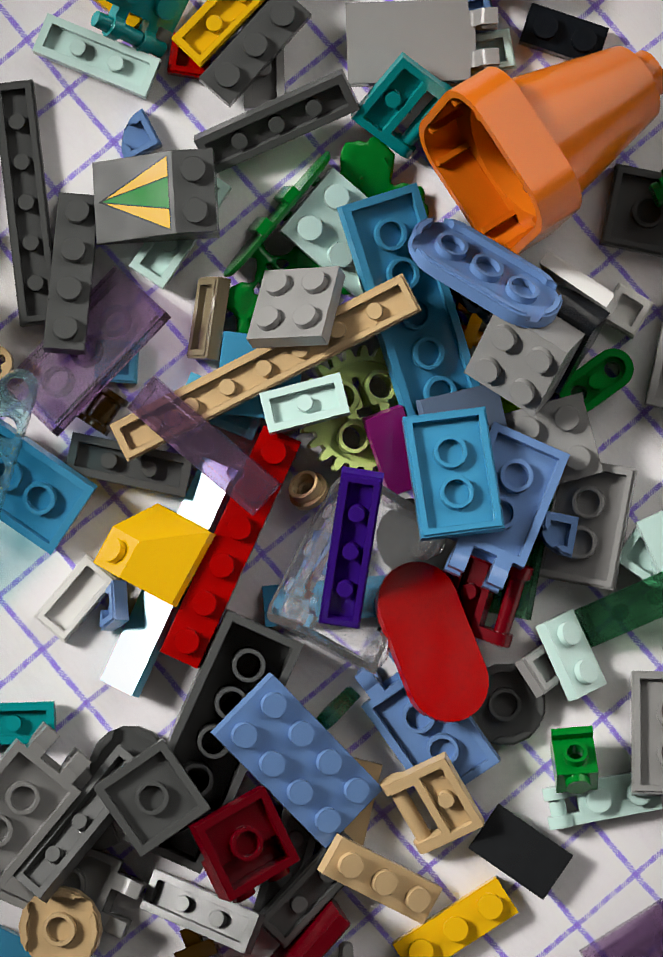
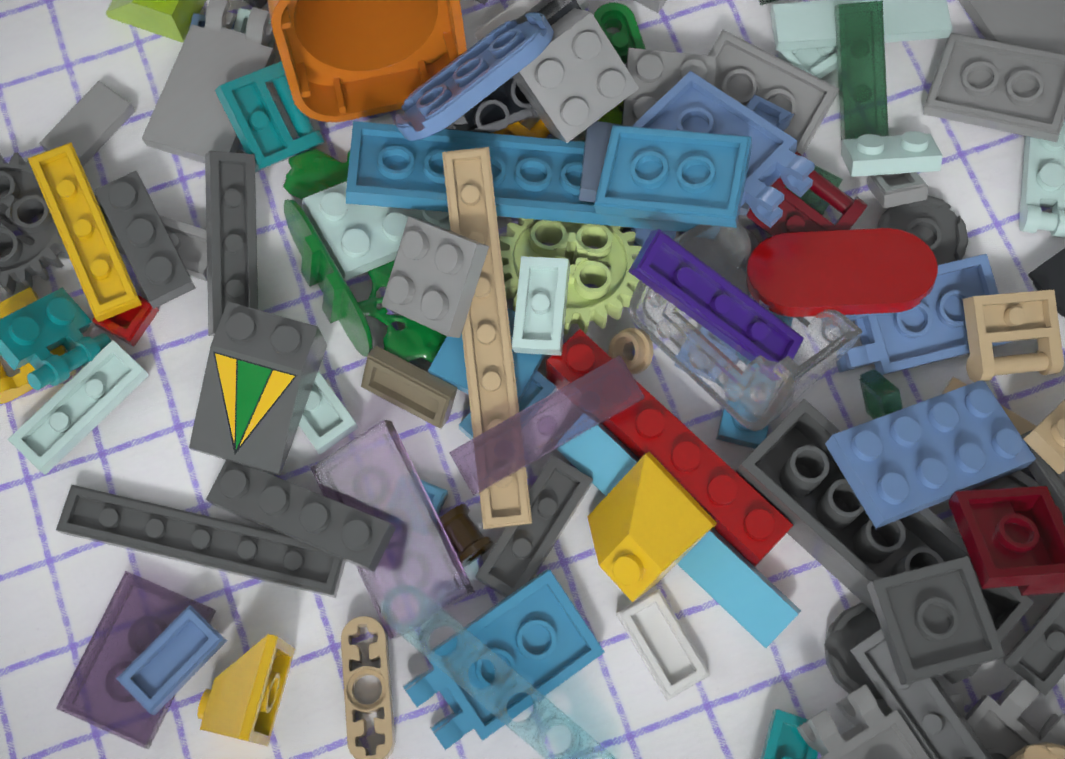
camera: 65 degrees left, 15 degrees down
(117, 608) = (690, 597): medium blue tile -> none
(139, 136) = (182, 394): medium blue tile -> none
(388, 447) = (611, 238): magenta tile -> none
(574, 759) = (1005, 183): green brick -> none

